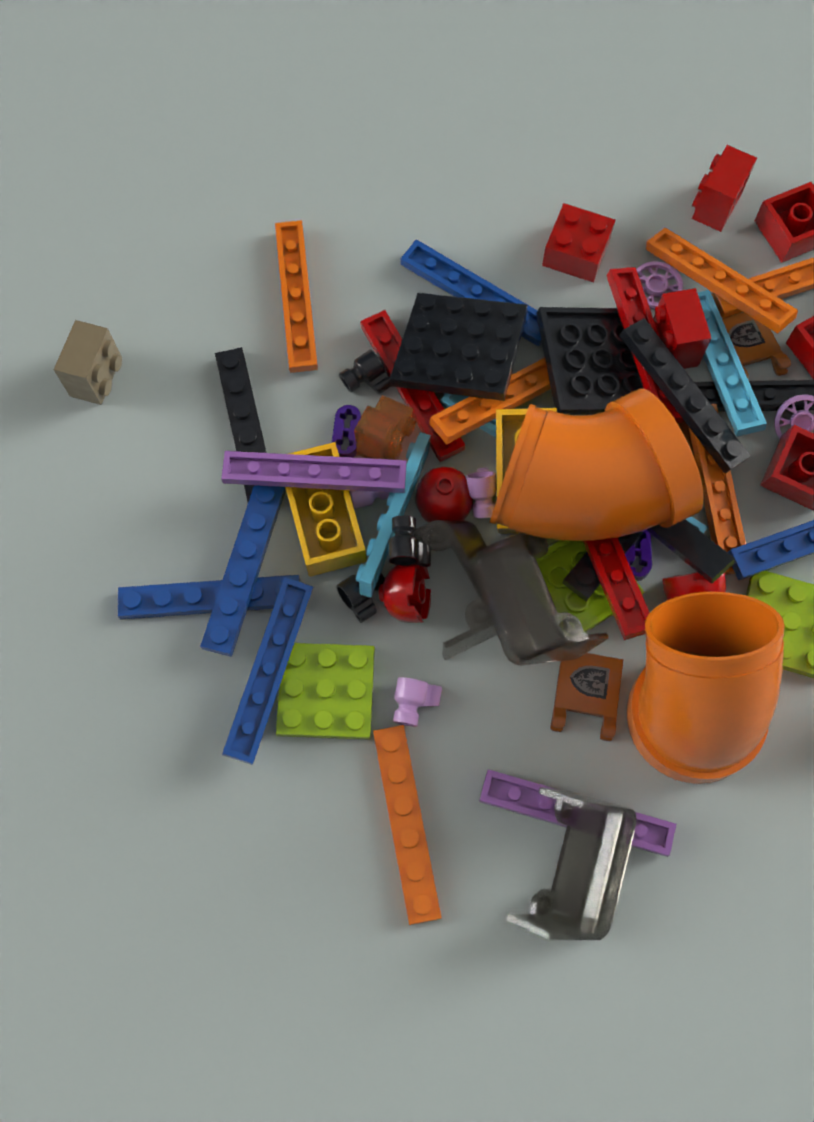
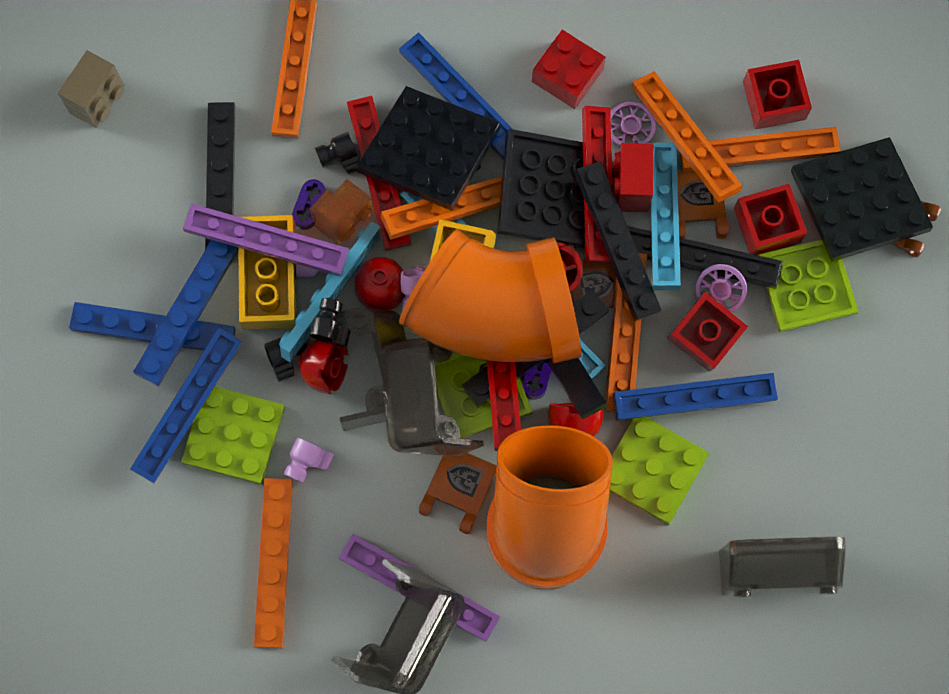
camera: 10 degrees right, 5 degrees up
(722, 187) = (717, 45): red brick -> none

